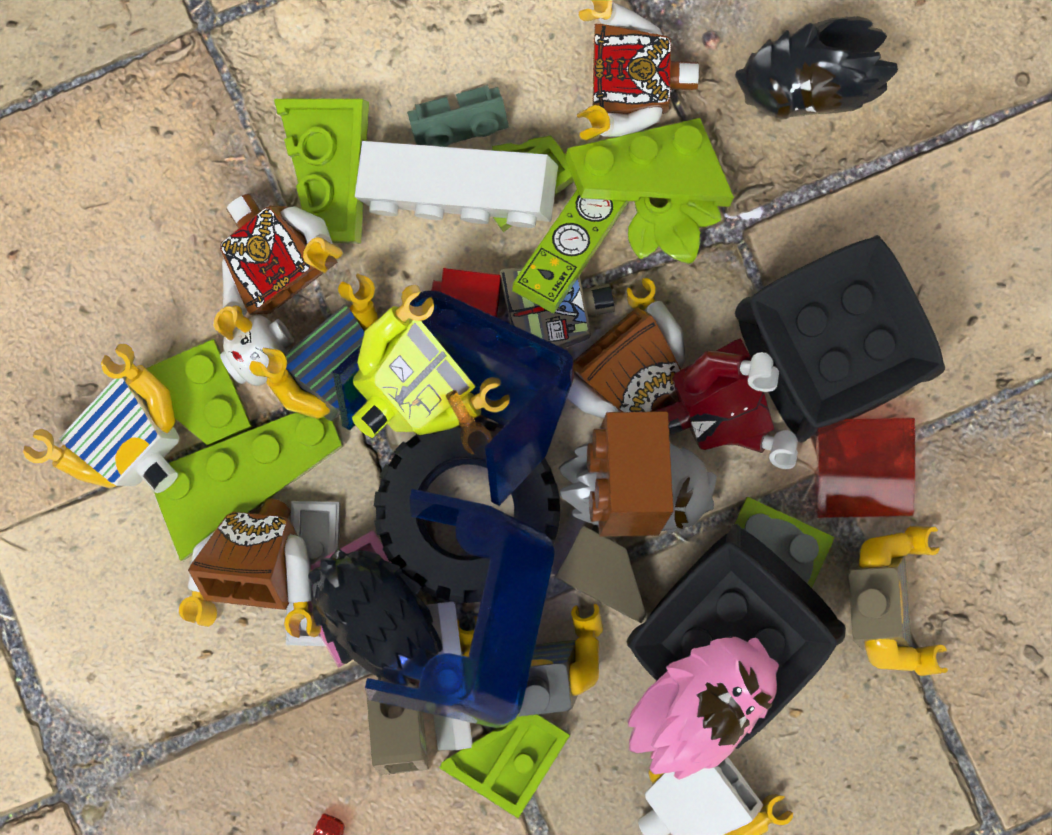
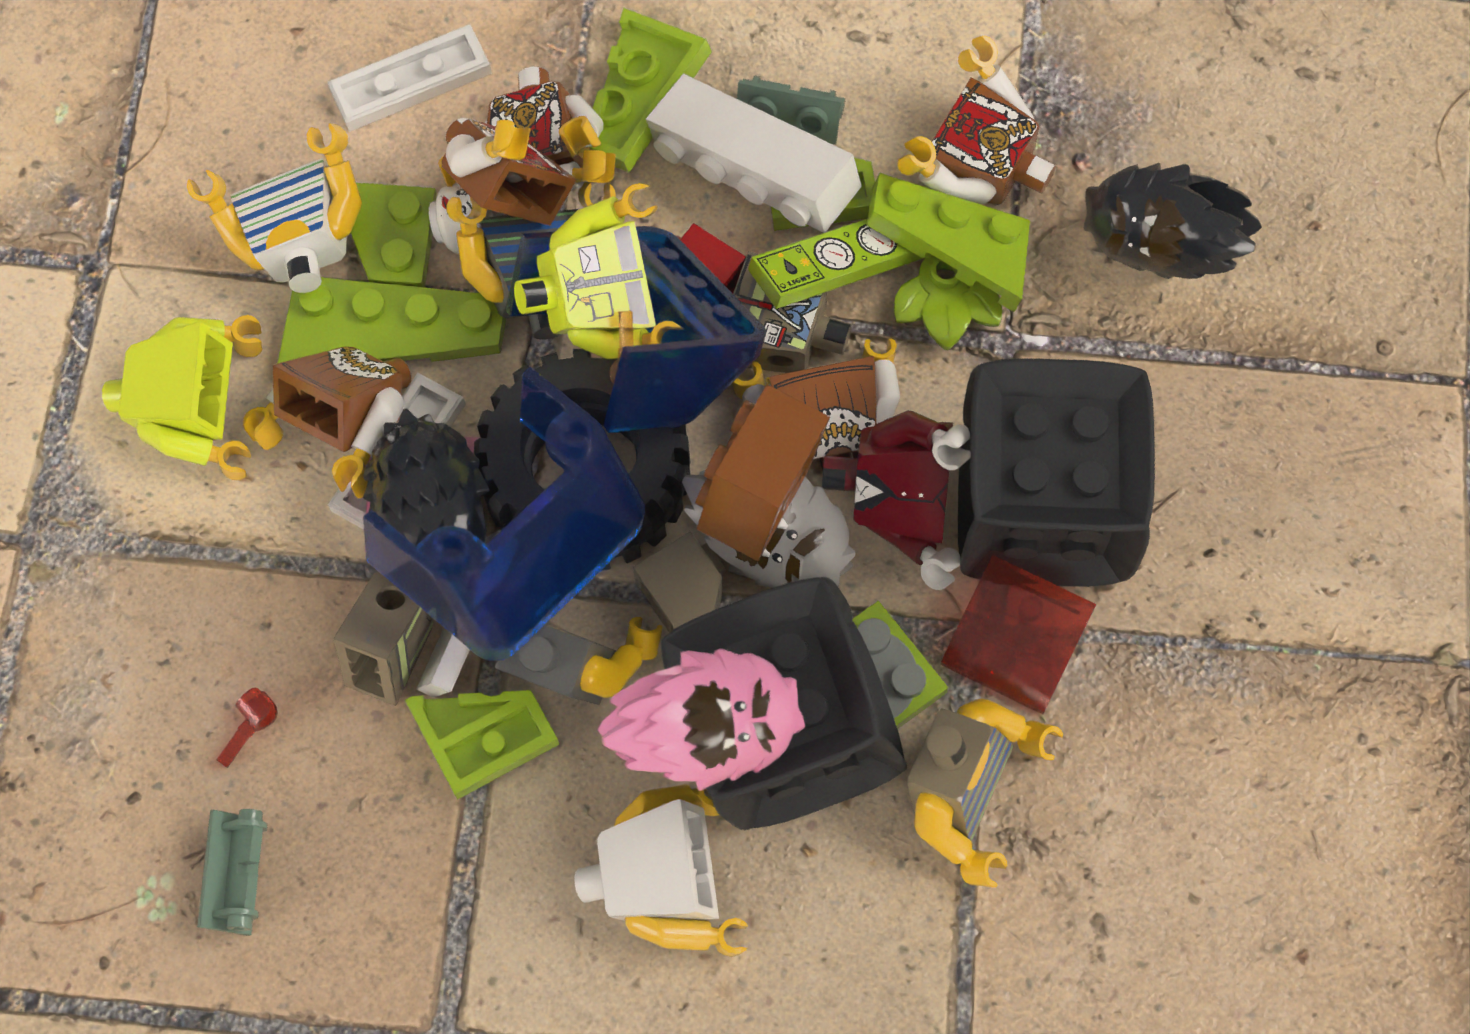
camera: 25 degrees right, 15 degrees down
(115, 617) = (179, 388): none -> neon yellow torso
(132, 250) = (409, 77): none -> white tile
(286, 316) = (512, 175): none -> torso

